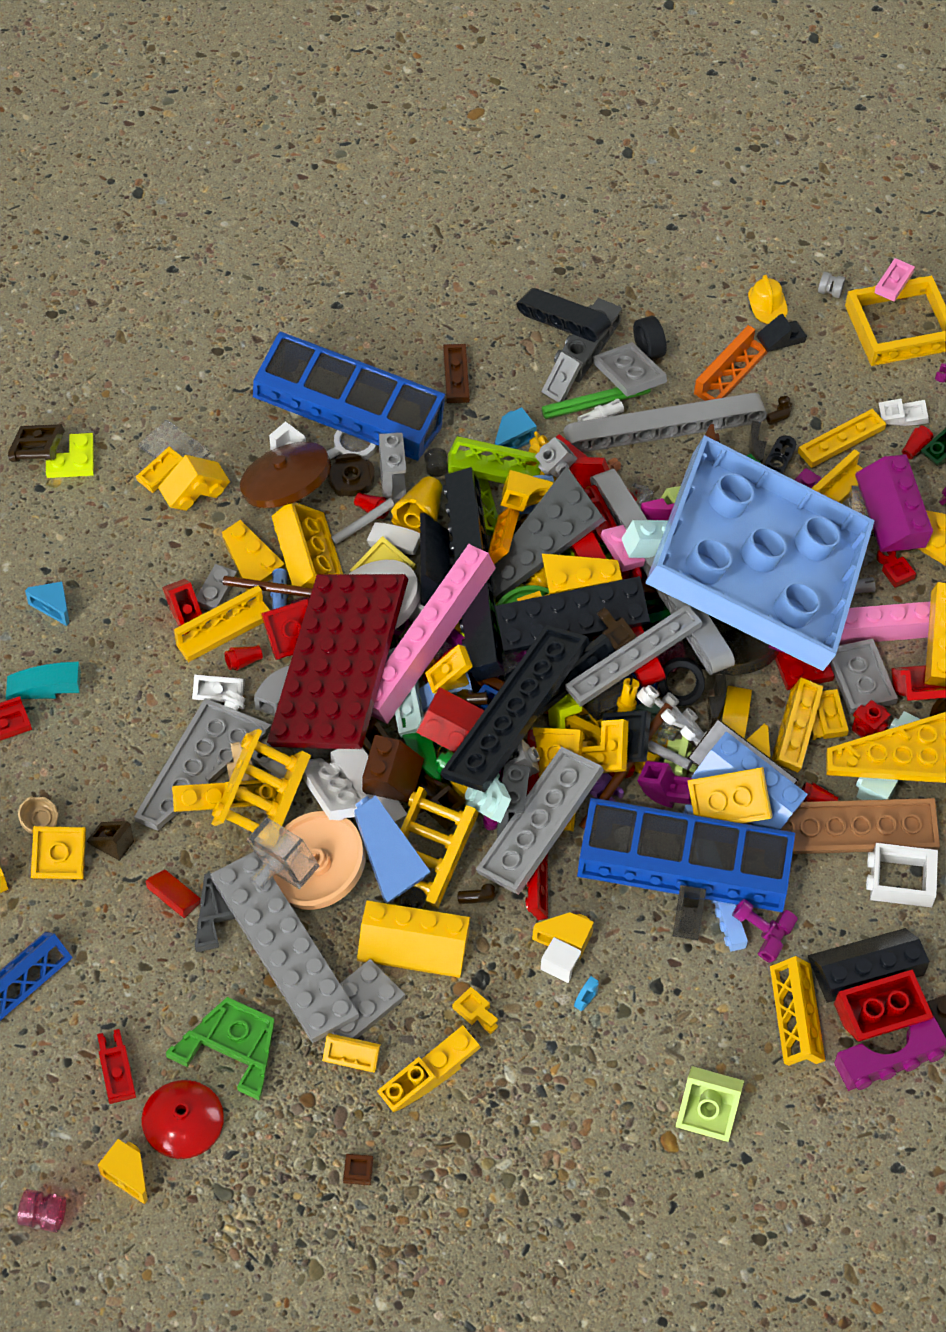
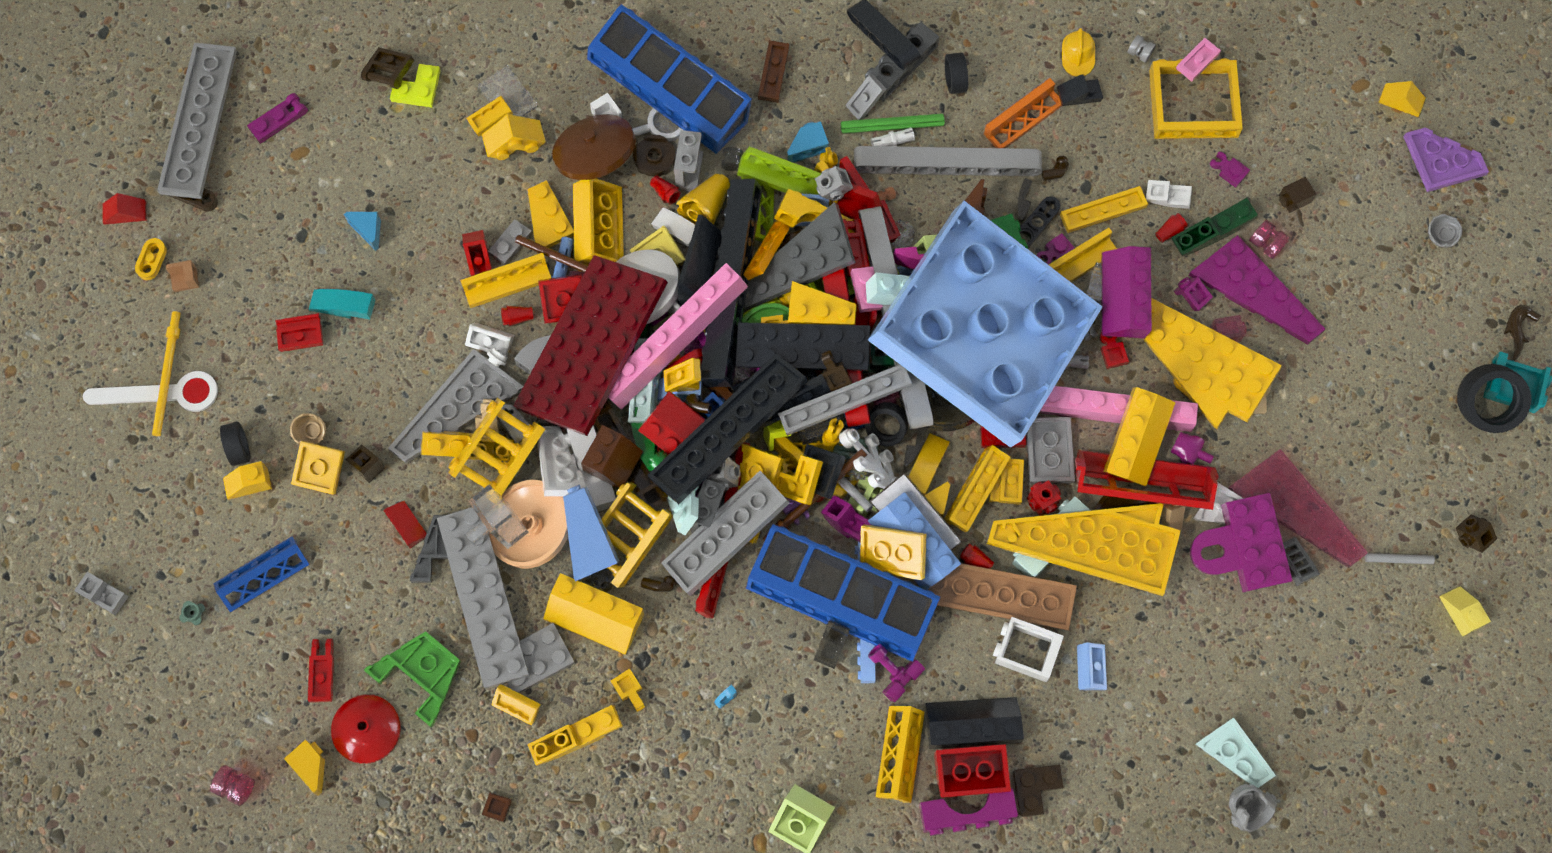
camera: 15 degrees right, 15 degrees up
(363, 521) = (652, 205): light grey bar -> none
(560, 959) = (711, 660): white panel -> none
(569, 928) = (723, 637): yellow slope -> none
(630, 369) = (929, 101): light grey plate -> none

